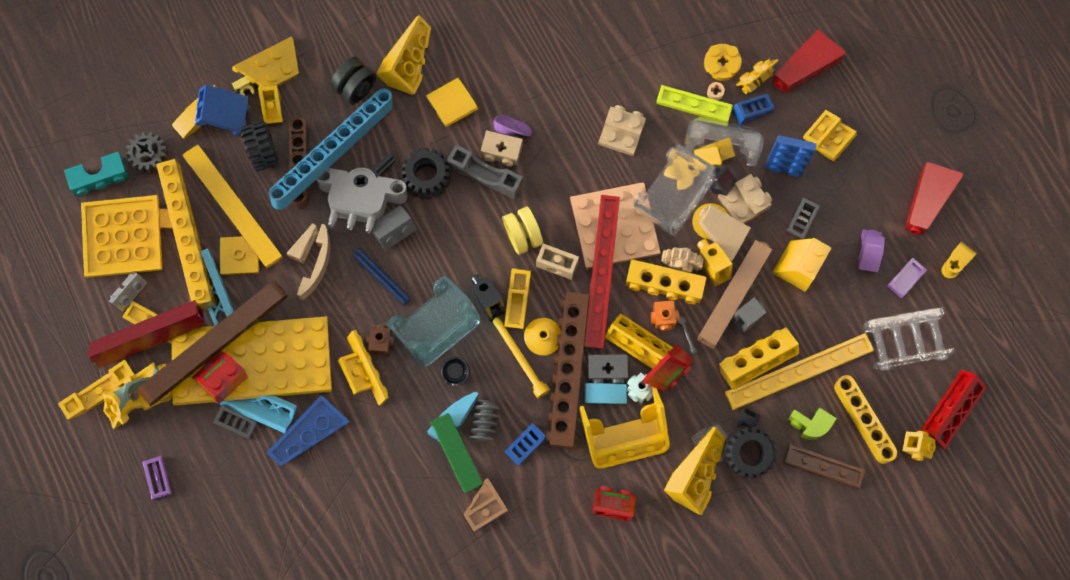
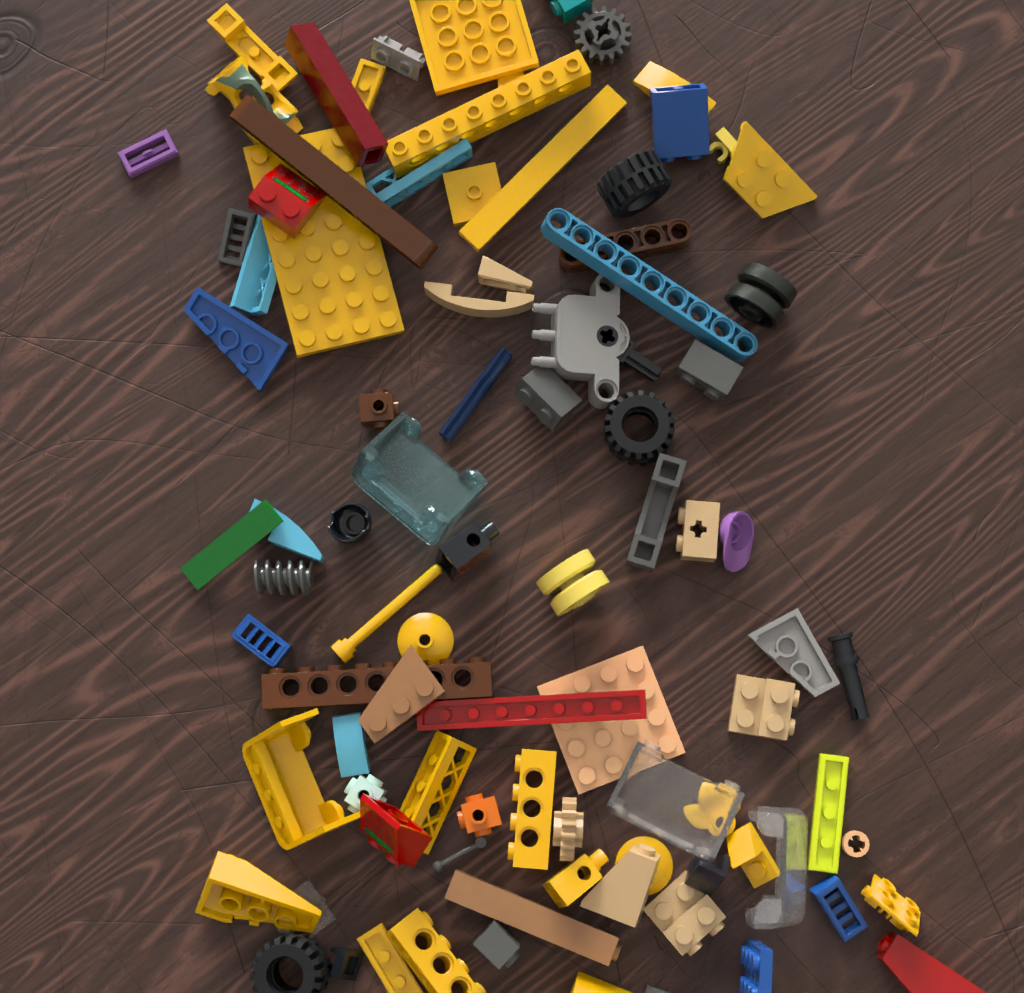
camera: 85 degrees right, 5 degrees up
(270, 104) = (703, 188): yellow slope -> none
(360, 370) = (332, 389): yellow bracket -> none
(396, 123) = (708, 371): none -> dark grey brick
(404, 62) = (808, 365): yellow wedge -> none
(452, 102) = (759, 446): yellow slope -> none
(484, 507) = (164, 599): medium nougat wing -> none
(517, 298) = (474, 593): yellow slope -> none
(557, 261) = (535, 641): tan brick -> none
(580, 351) = (400, 697): none -> medium nougat wing
(590, 103) = (796, 652): none -> light grey wing
(600, 75) = (846, 662): none -> black pin
(614, 504) = (188, 781): red slope -> none
(617, 364) = (393, 759): dark grey brick -> none
(719, 52) = (921, 858): yellow plate -> none

